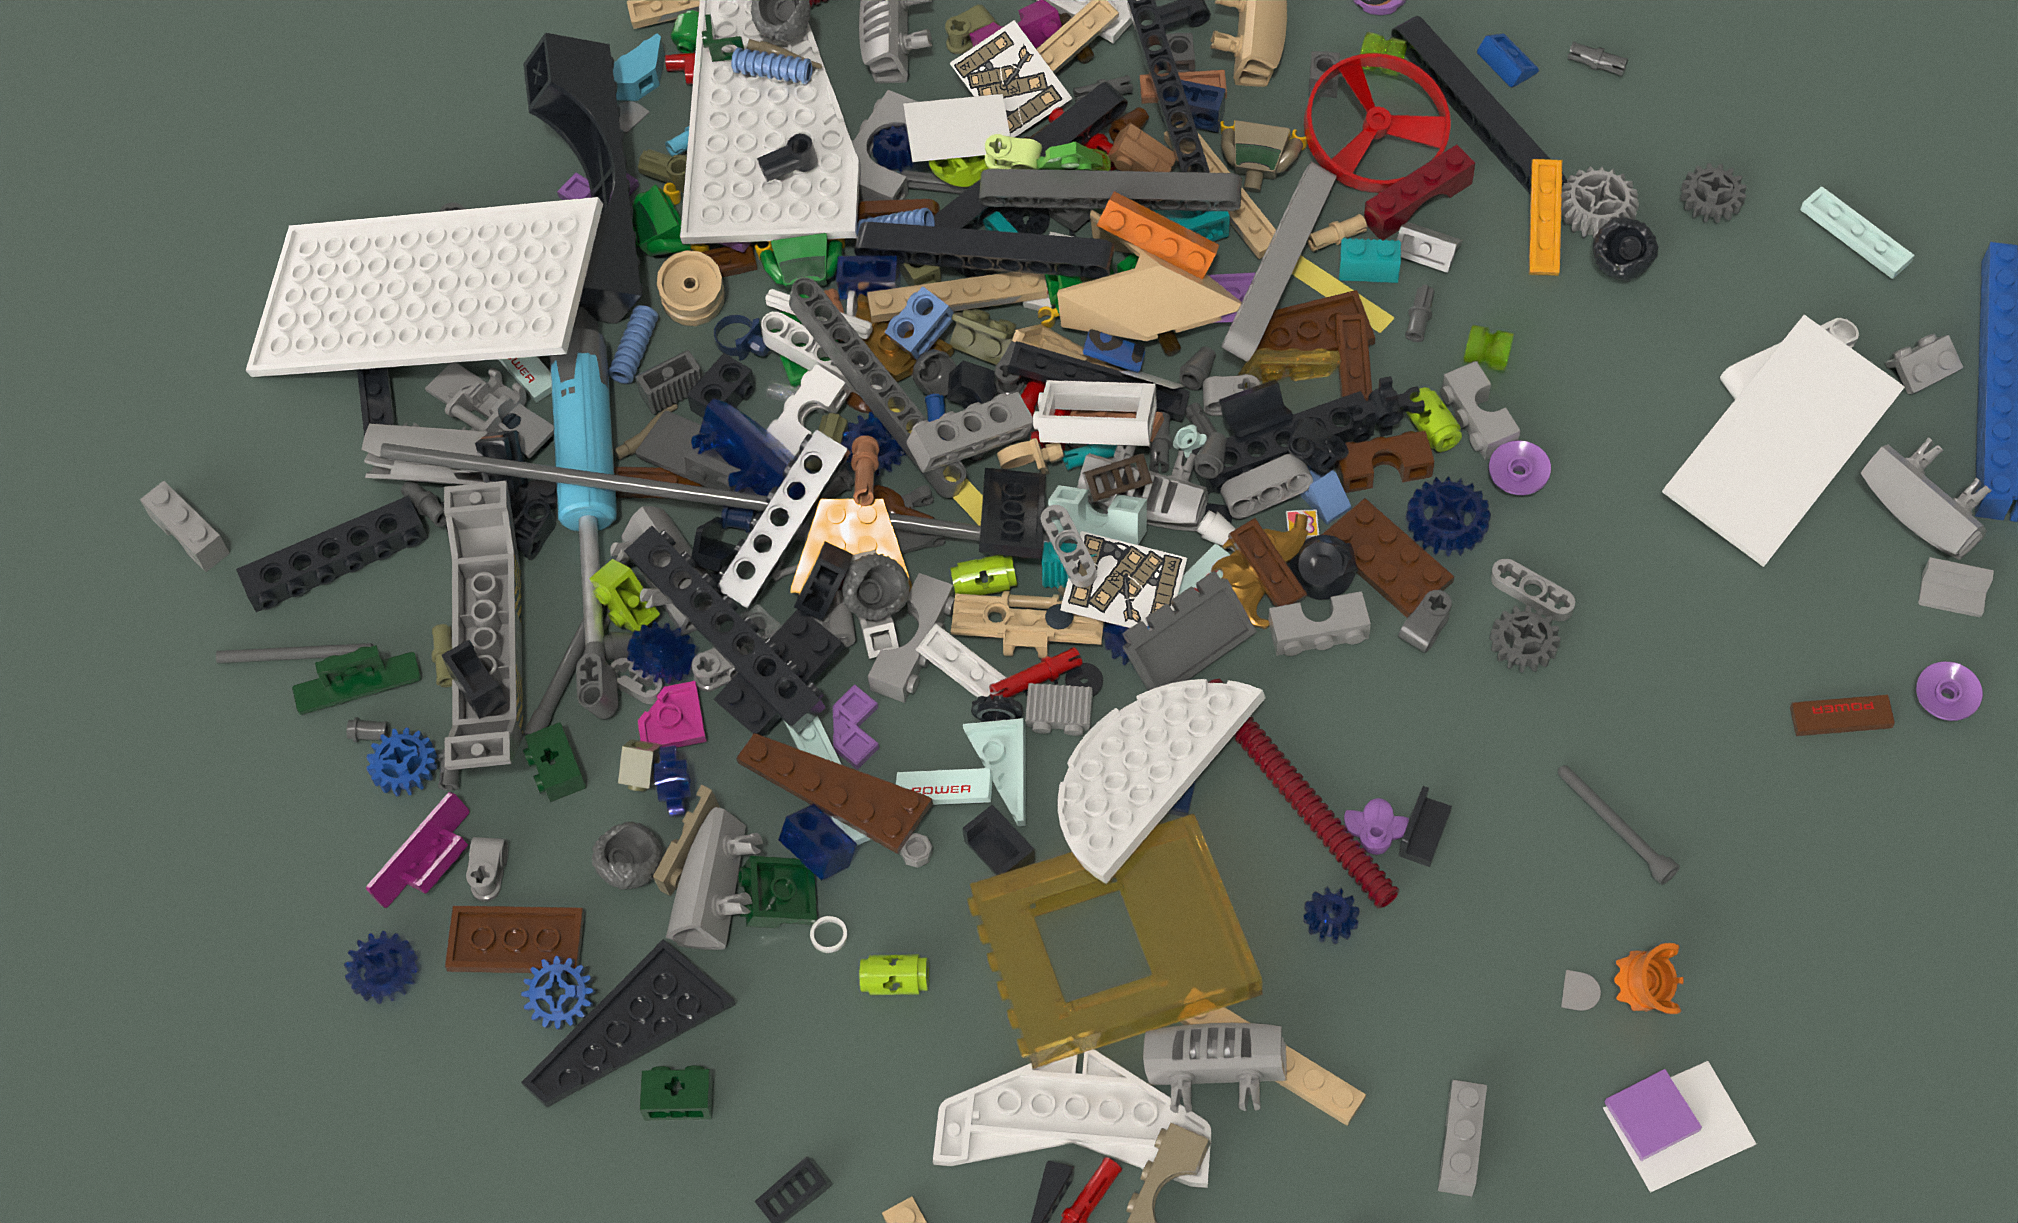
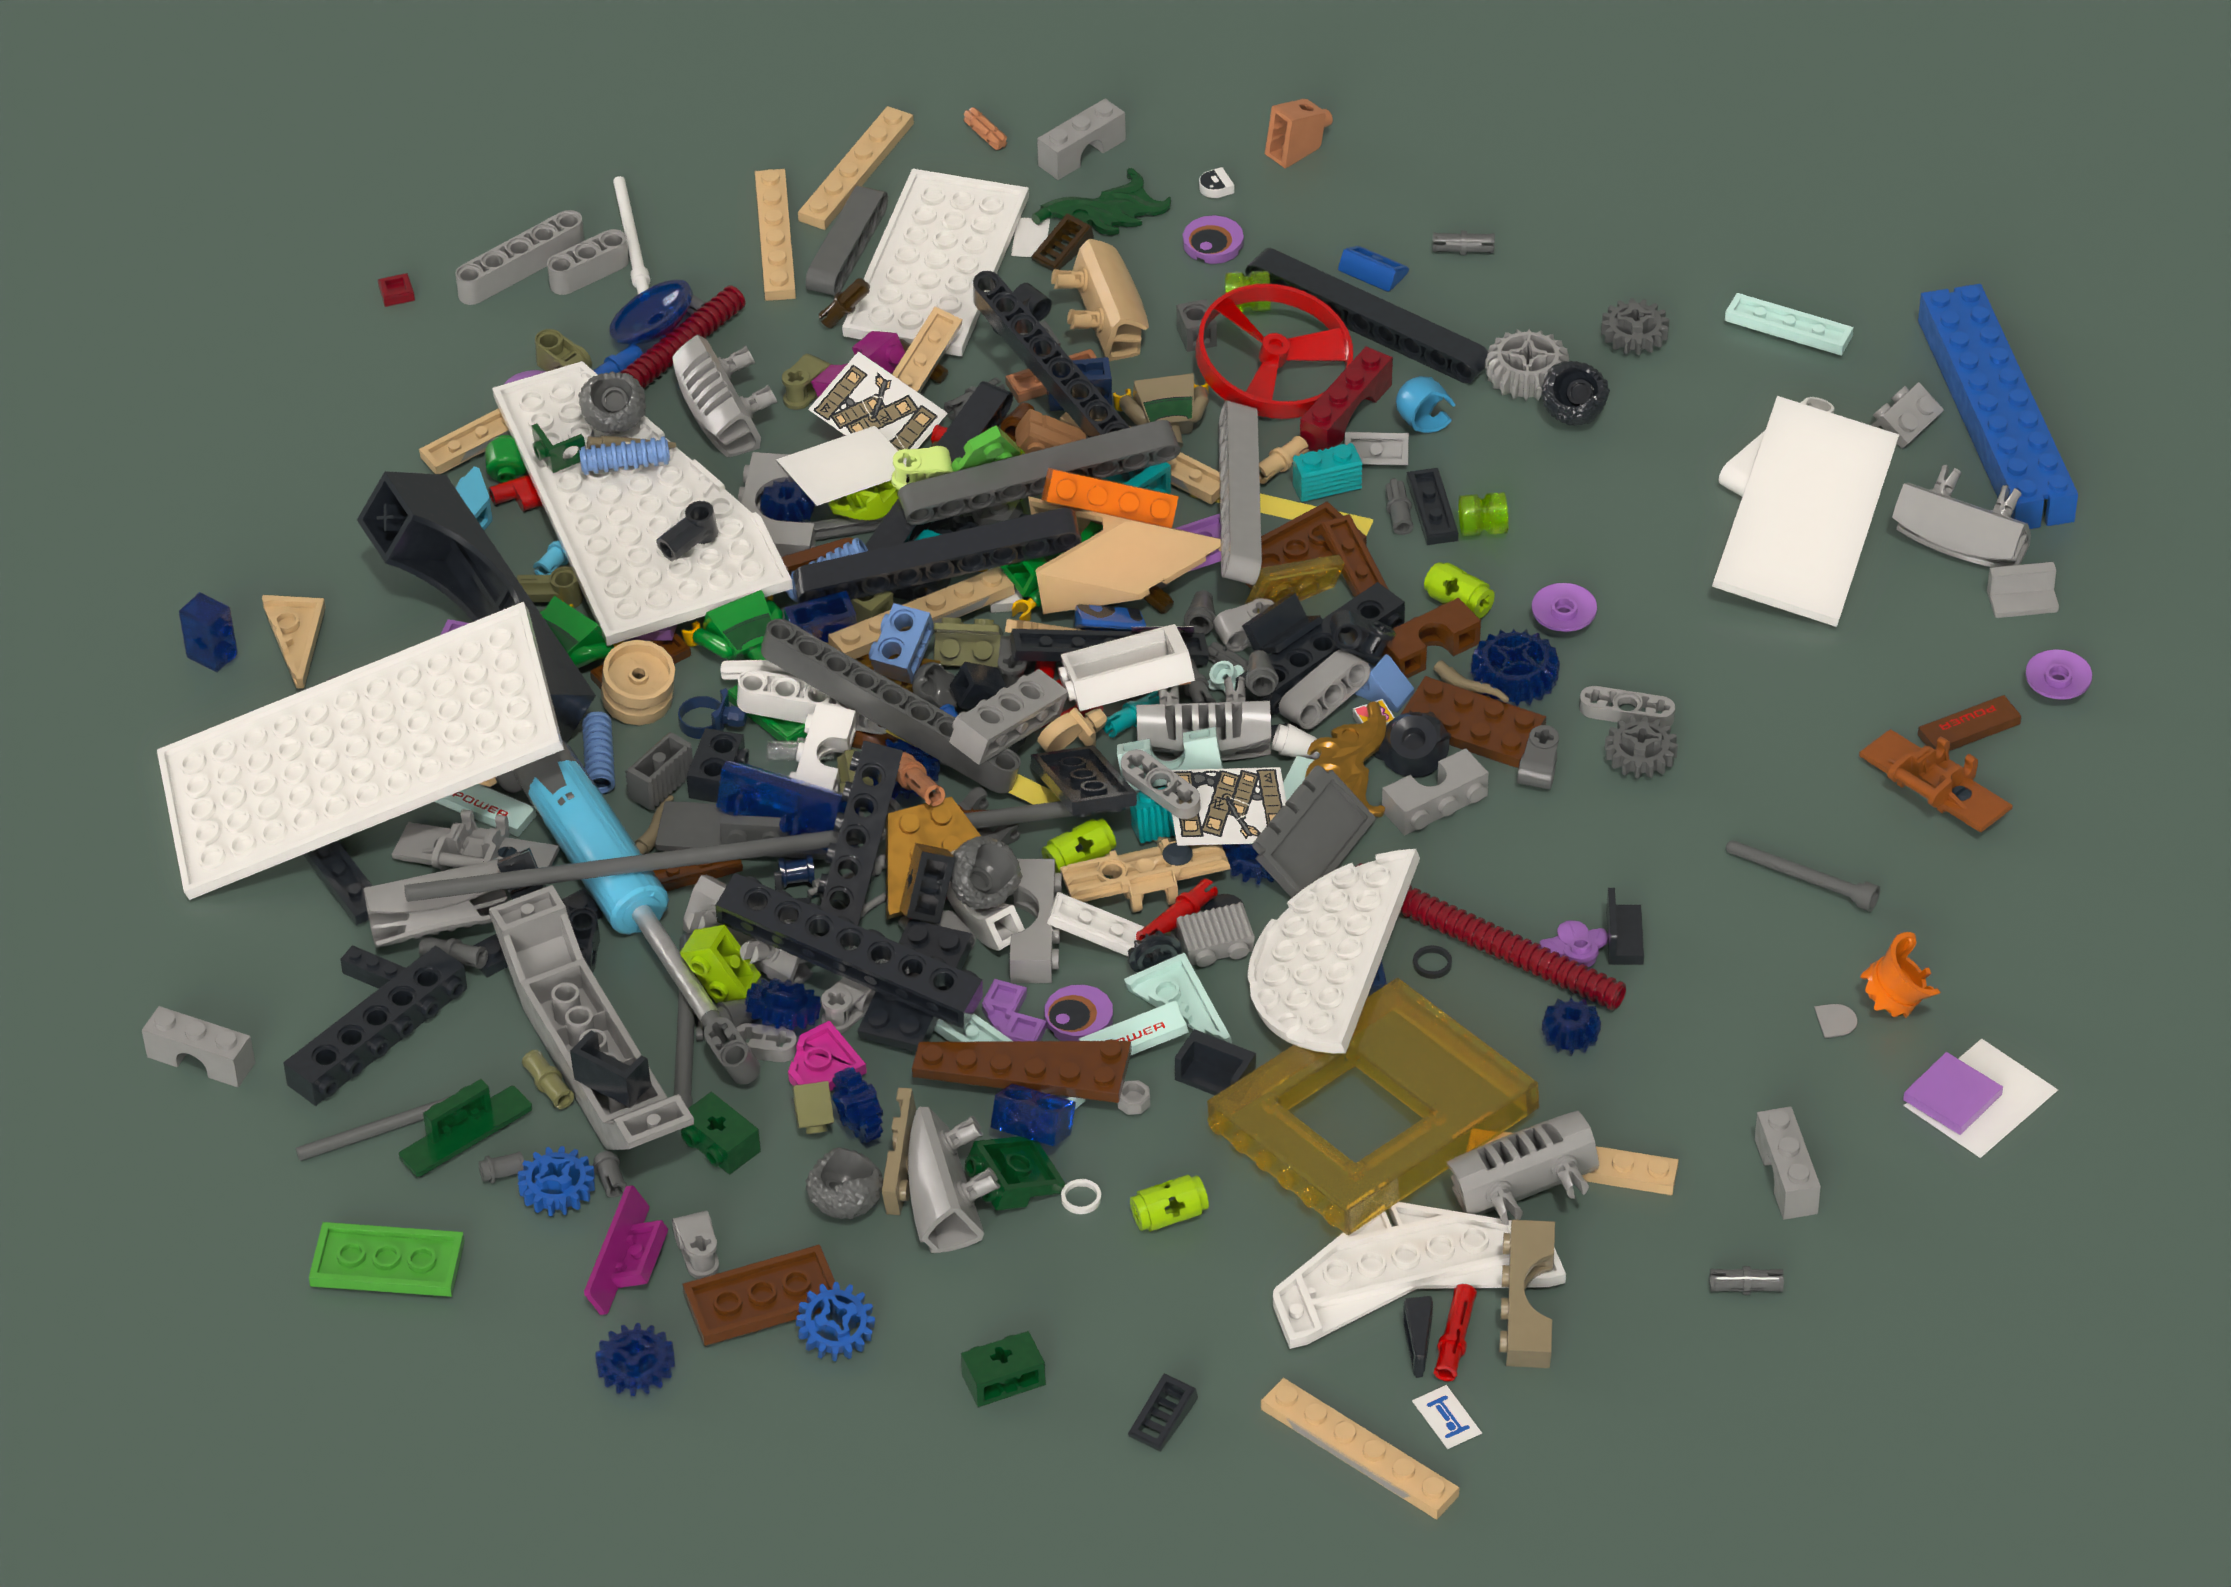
camera: 25 degrees left, 15 degrees down
(234, 789) = (386, 1259): none -> bright green plate
(355, 493) = (368, 967): none -> black piece
(375, 128) = (208, 632): none -> clear blue brick
(454, 140) = (296, 629): none -> tan wing
(641, 1013) = (925, 1318): black wing -> none
(910, 744) = (1078, 1012): none -> tile
(1091, 483) = (1156, 732): dark brown slope -> none
(1241, 784) = (1432, 974): none -> black piece
(1267, 564) = (1359, 752): reddish brown tile -> none
(1385, 406) = (1410, 584): black pin -> none
(1392, 512) = (1451, 676): none -> dark tan animal
(1451, 321) = (1432, 506): none -> black tile
(1479, 215) = (1416, 402): none -> dark azure helmet
(1486, 430) = (1515, 585): light grey arch -> none
(1545, 217) = (1483, 388): light orange tile -> none
(1791, 761) = (1937, 778): none -> dark orange piece

